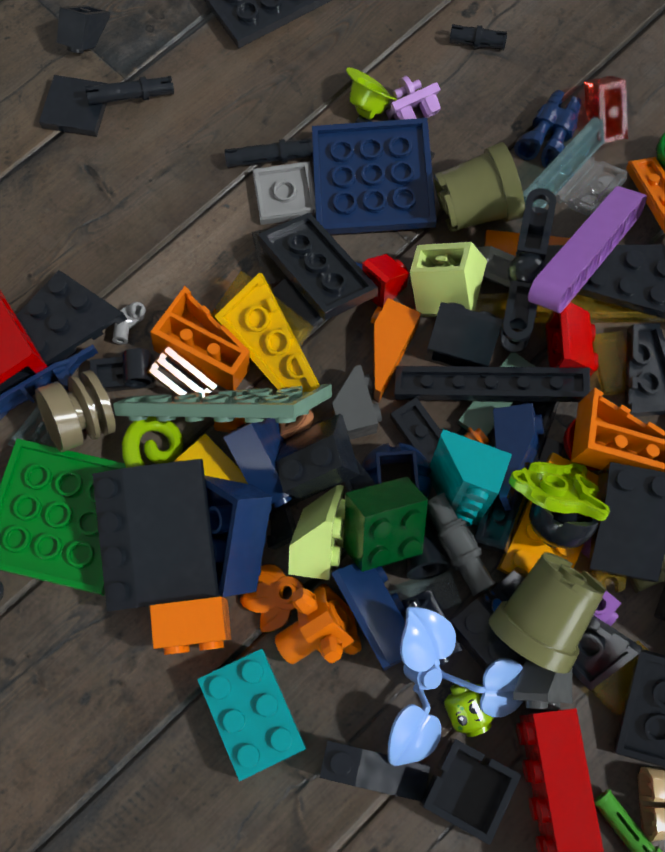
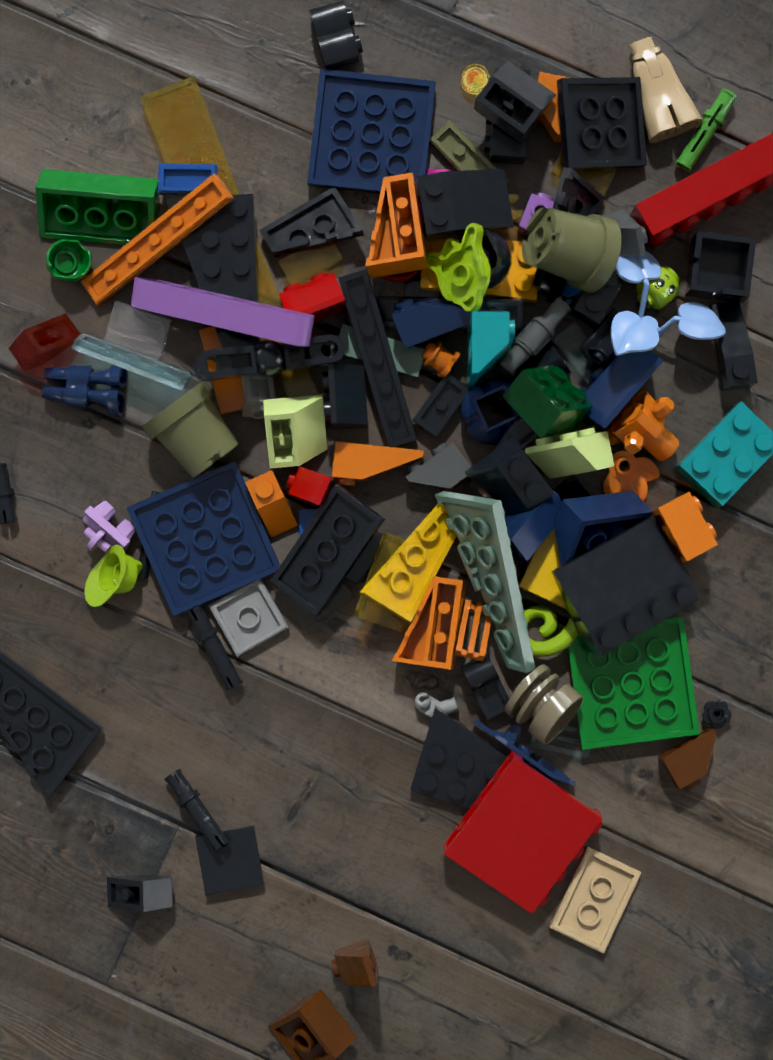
camera: 105 degrees left, 15 degrees up
(385, 237) = (271, 503): none -> orange slope

